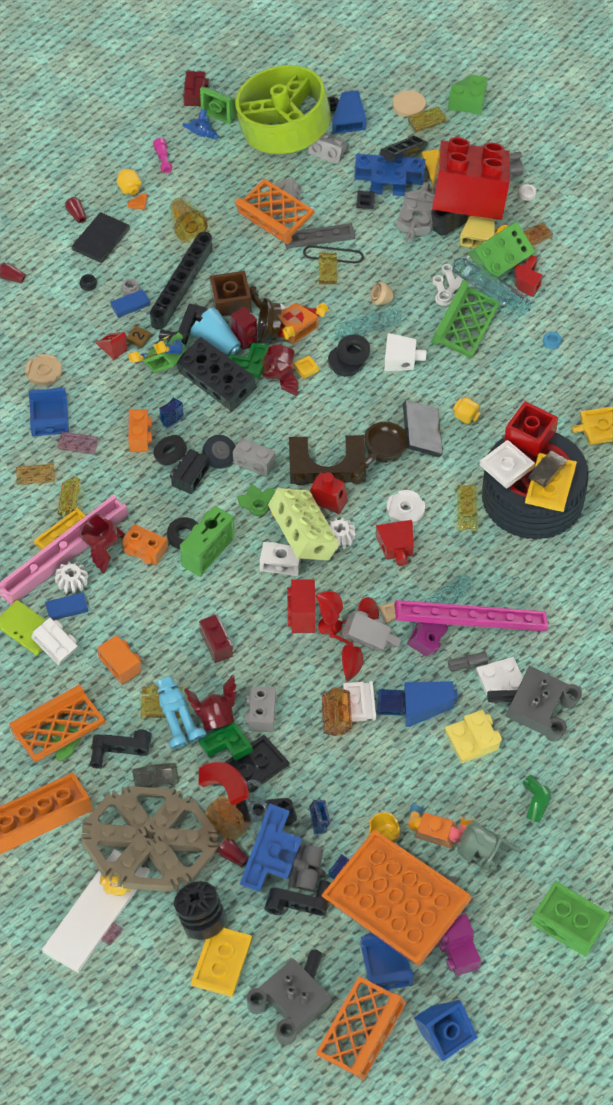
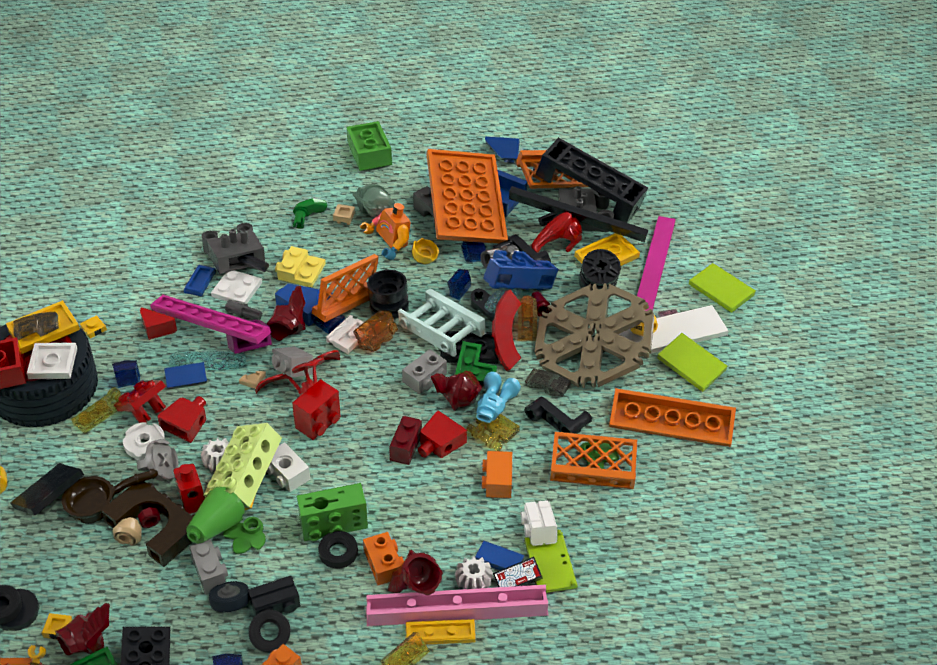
camera: 140 degrees left, 10 degrees down
(39, 597) = (518, 574): none -> tile
(49, 886) = (692, 362): none -> lime tile
(85, 1005) = (722, 287): none -> lime tile
(169, 986) = (656, 260): none -> dark pink tile
(193, 663) = (441, 436): none -> red torso
(276, 962) = (582, 215): none -> black tile
(278, 472) = (215, 515): none -> bright green cone
(279, 947) = (563, 227): none -> red hair
(294, 780) = (444, 308): none -> light aqua fence
(300, 1016) = (595, 174): none -> black plate
(333, 442) = (128, 531): none -> tan cone
(333, 459) = (149, 517): none -> dark red tile
(362, 751) = (388, 292): none -> black wheel
(369, 493) = (161, 458): none -> light grey tile
(393, 722) = (351, 296): none -> orange fence
(416, 665) = (288, 318): none -> dark red helmet
(440, 523) = (142, 393): none -> red plate
(440, 574) = (185, 375): none -> blue tile
(480, 539) = (126, 373): none -> clear blue piece
(498, 815) = (344, 214): none -> tan tile
(518, 594) = (157, 324): none -> red slope
(536, 658) = (199, 280): none -> blue tile
(563, 563) = (93, 326): none -> yellow plate

